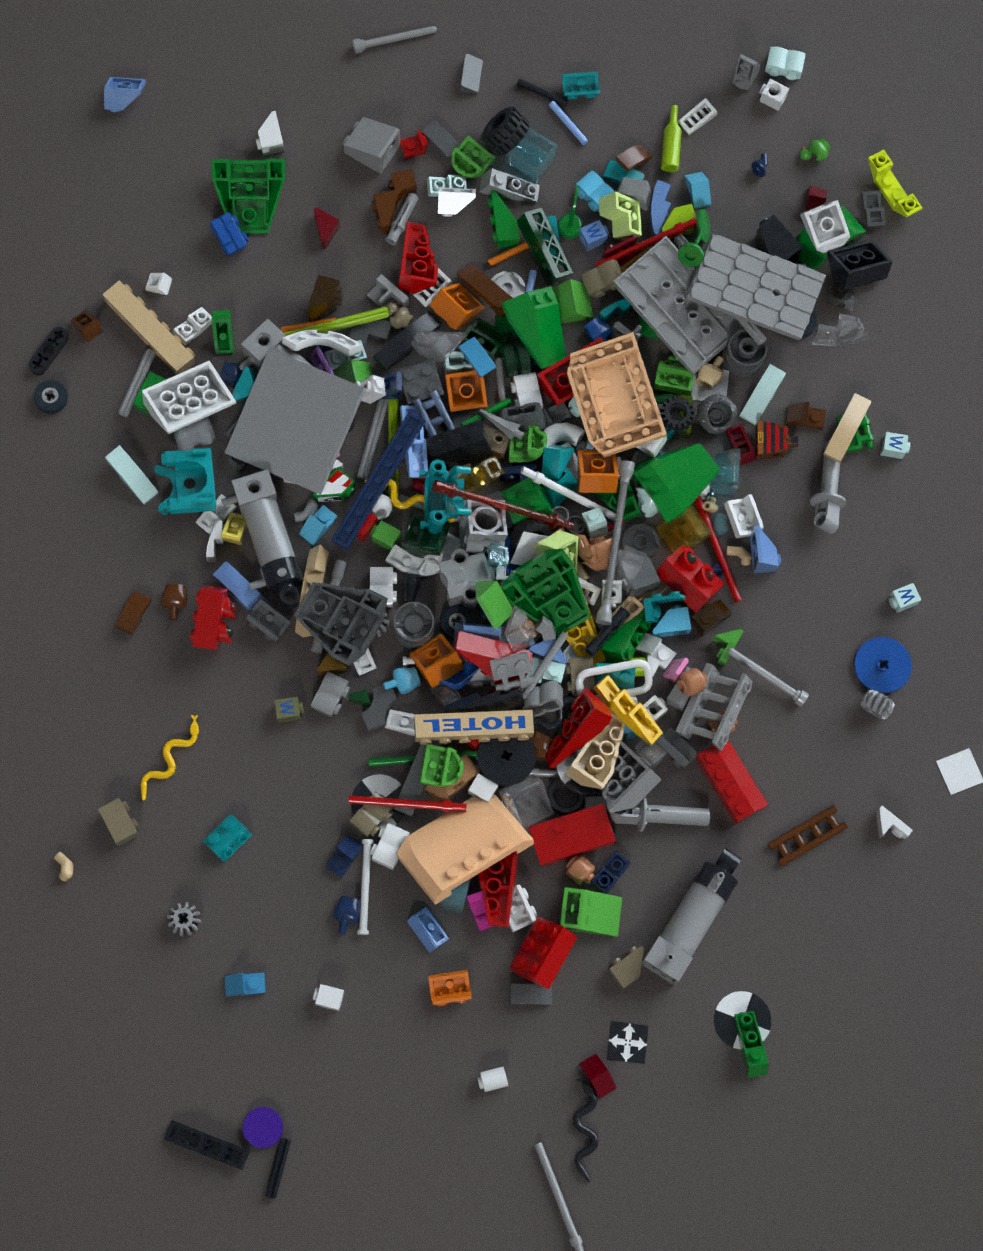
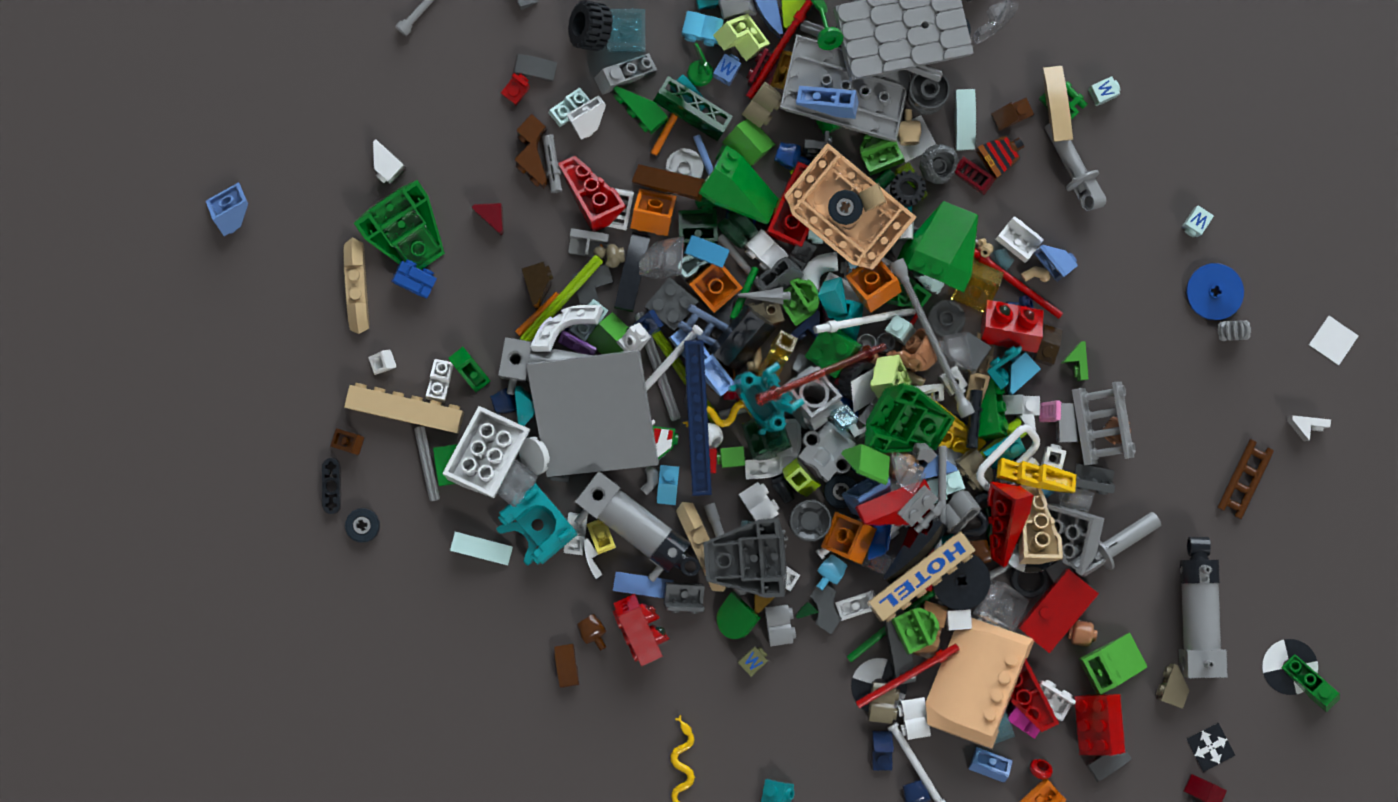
camera: 35 degrees left, 10 degrees up
(180, 212) = (356, 286): none -> tan brick
(226, 429) = (534, 455): none -> white tile
(298, 664) = (735, 617): none -> green tile
(372, 143) = (479, 112): light grey slope -> none
(425, 412) = (672, 357): none -> white bar
(430, 588) = (800, 478): none -> lime slope
(468, 960) = (1043, 774): none -> red piece
(471, 159) = (575, 69): bright green slope -> none
(608, 385) = (835, 206): none -> black bush
(611, 872) = (1107, 617): dark blue slope -> none
(620, 307) = (795, 121): teal slope -> none
(641, 397) = (872, 197): none -> tan brick
(658, 302) = (829, 101): none -> medium blue slope
(692, 682) = (1074, 416): nougat head -> none
(728, 478) = (982, 205): clear light blue slope -> none
(731, 782) = (1157, 477): red slope -> none
(798, 696) = (1165, 366): light grey piece -> none

